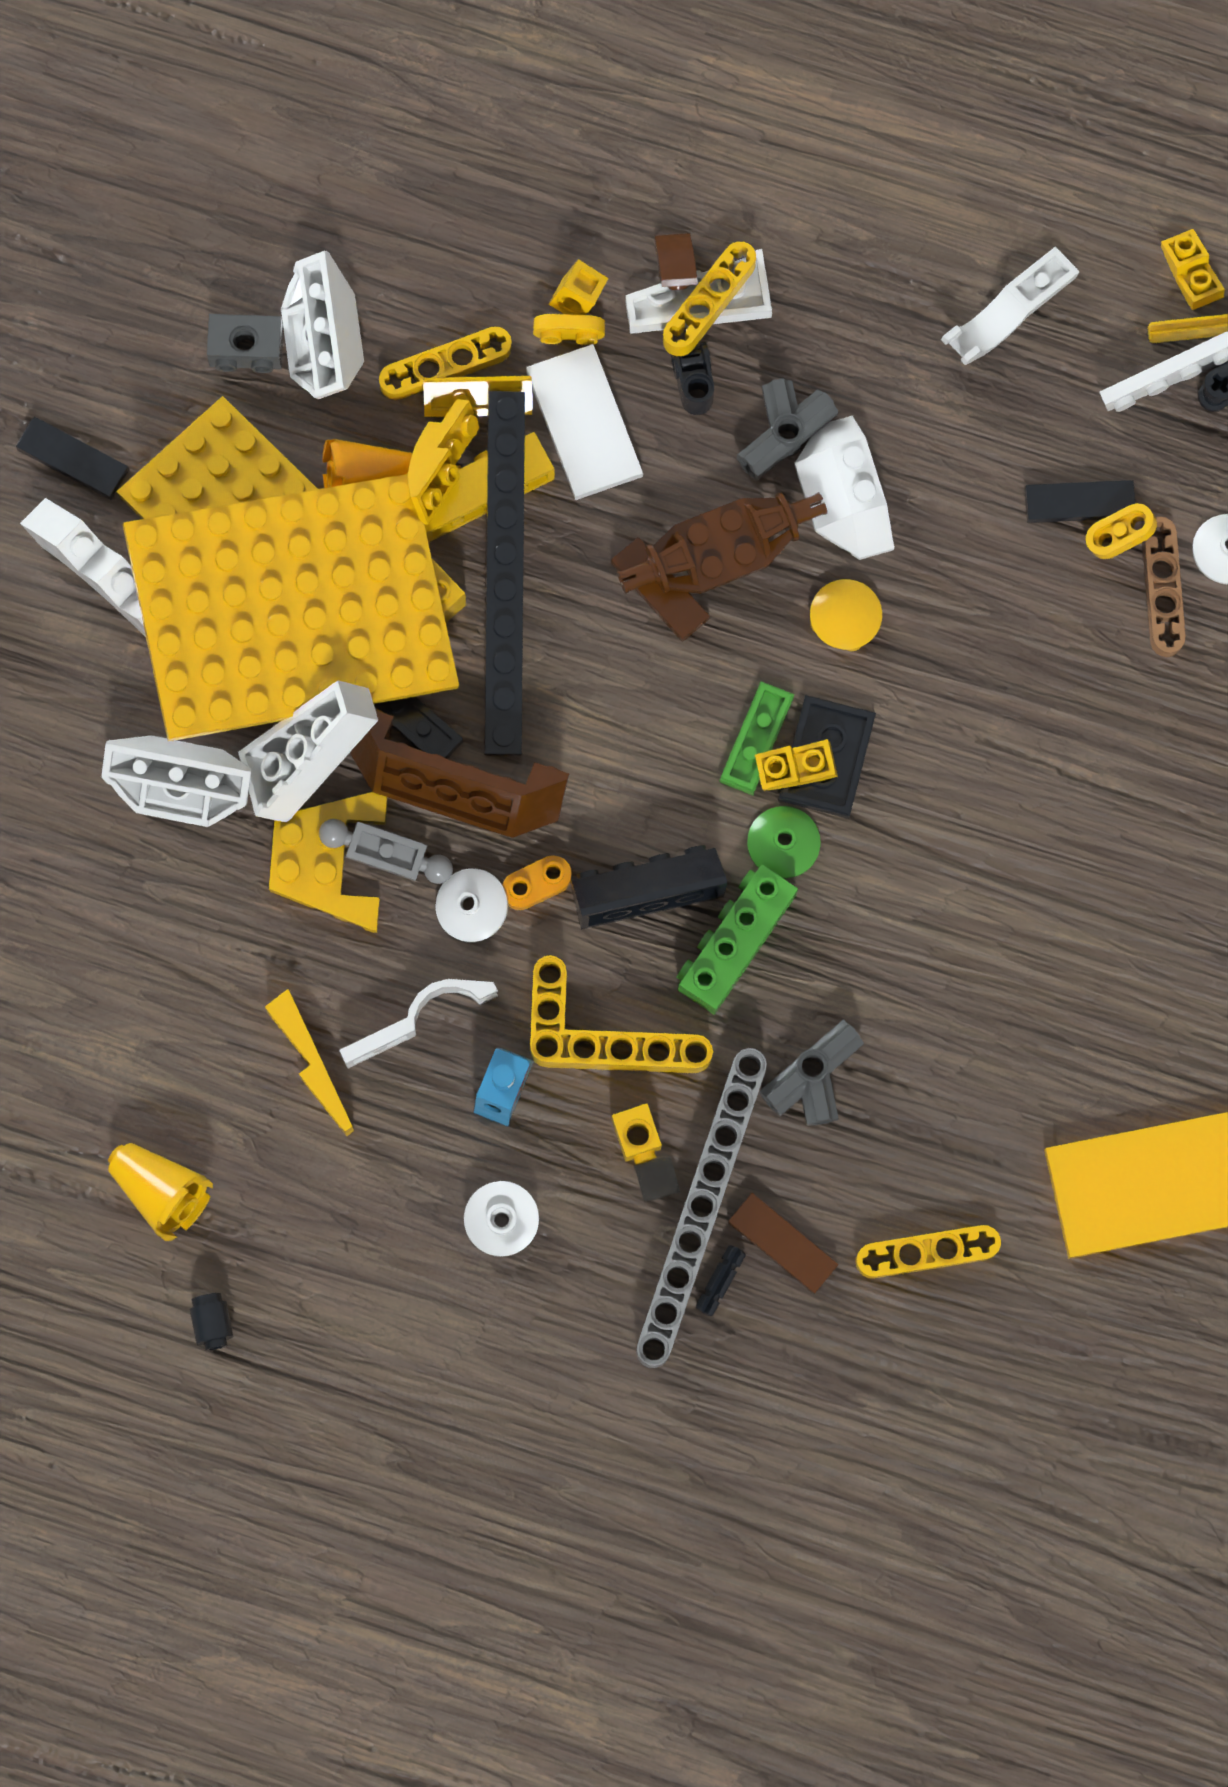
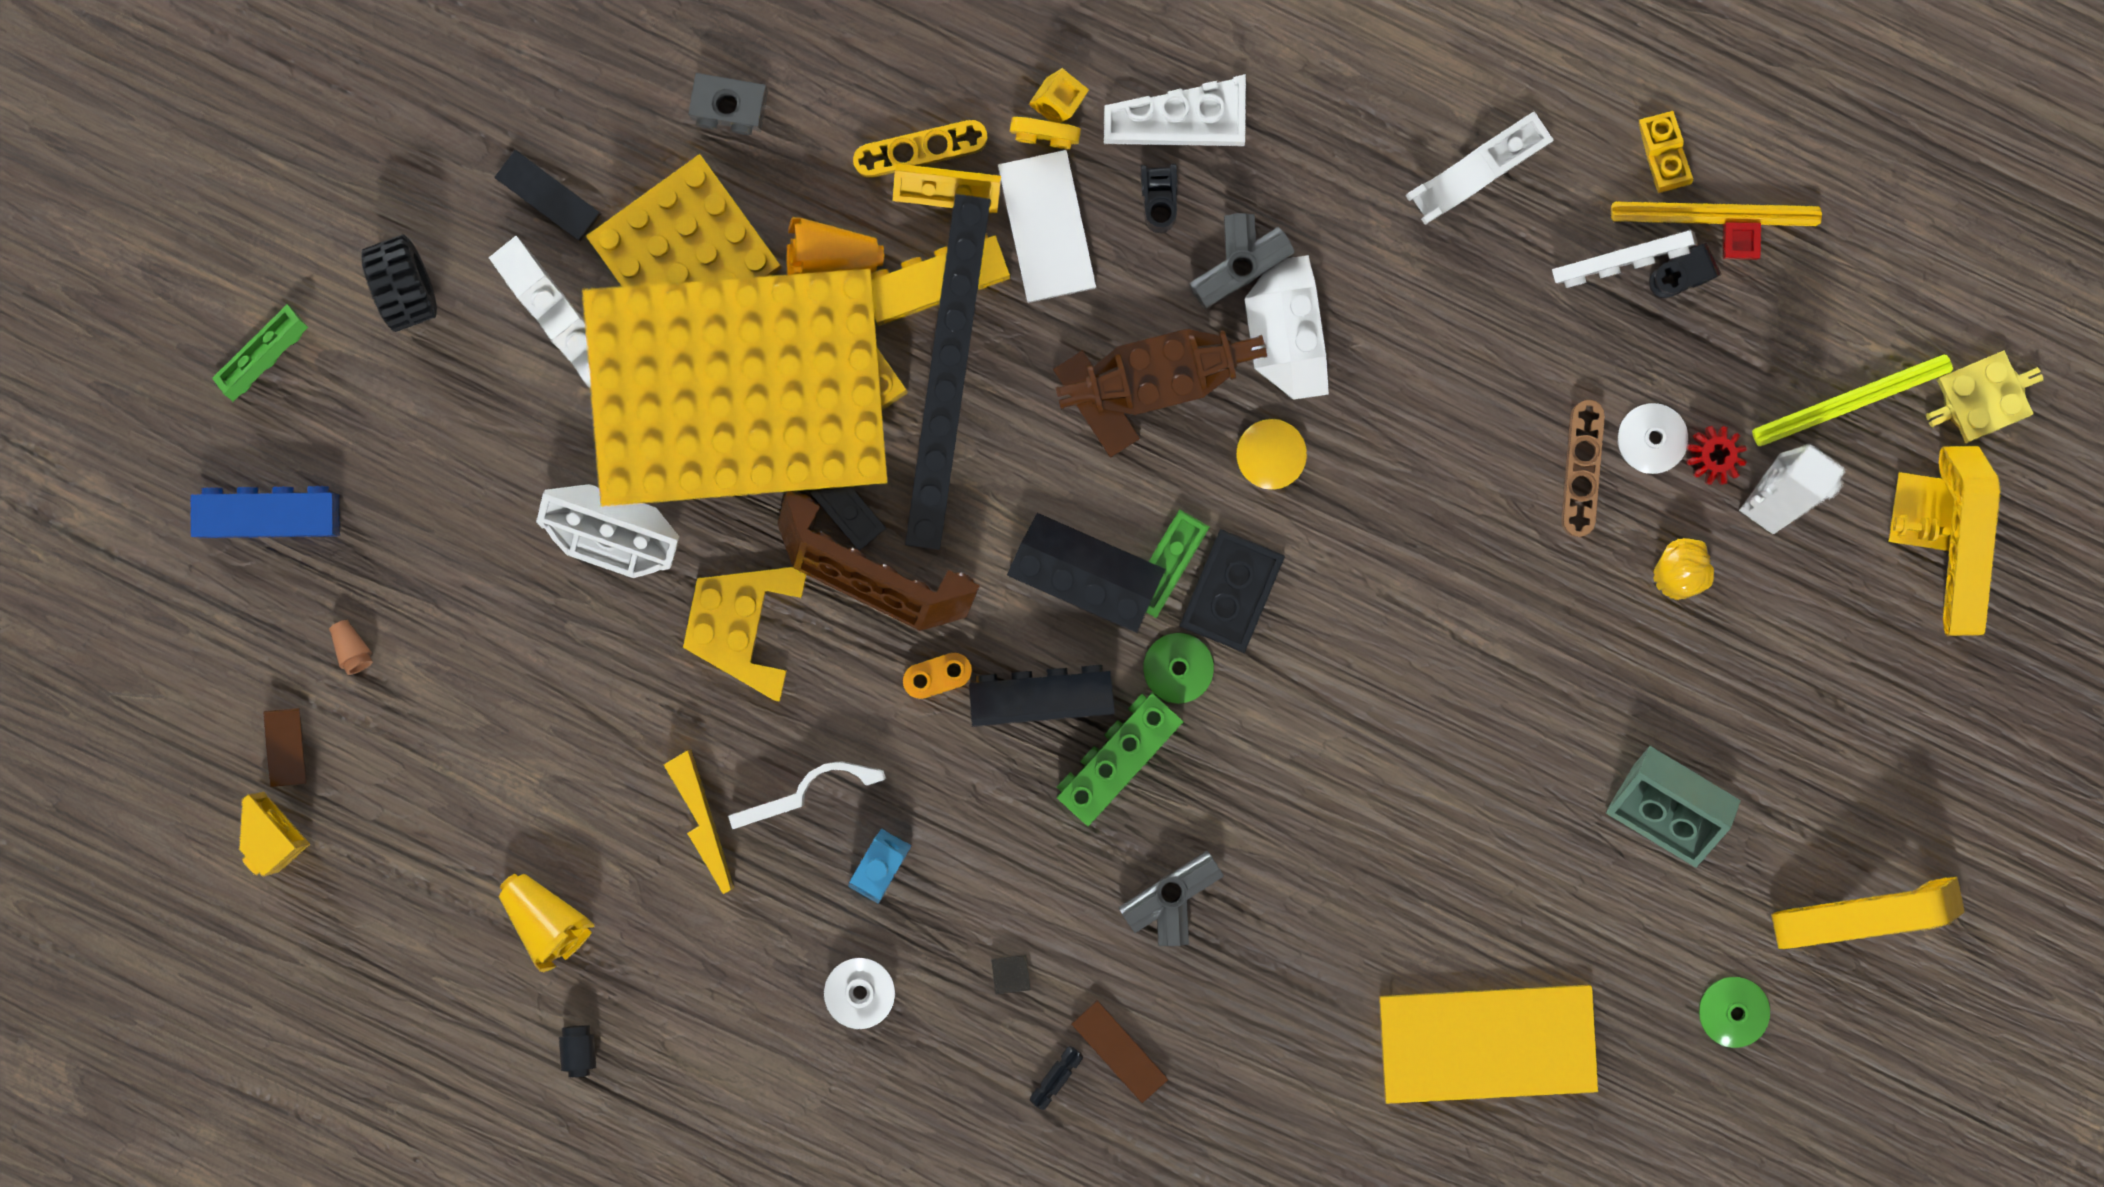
camera: 20 degrees right, 10 degrees up
(306, 749) = (731, 527): white wedge -> none
(321, 327) = (804, 101): white wedge -> none
(385, 851) = (798, 627): light grey plate -> none
(435, 457) = (892, 255): yellow slope -> none
(488, 910) = (888, 684): white dish -> none
(602, 1040) = (977, 839): yellow beam -> none
(636, 1117) = (998, 915): yellow brick -> none
(674, 758) = (1086, 572): none -> black slope
(676, 261) = (1158, 78): reddish brown slope -> none
(709, 1190) = (1046, 1026): light grey beam -> none
(713, 300) = (1181, 118): yellow beam -> none
(796, 765) = (1200, 599): yellow slope -> none
(928, 1255) = (1254, 1074): yellow beam -> none
(1077, 500) = (1516, 372): black tile -> none
(1121, 530) = (1551, 408): yellow plate -> none

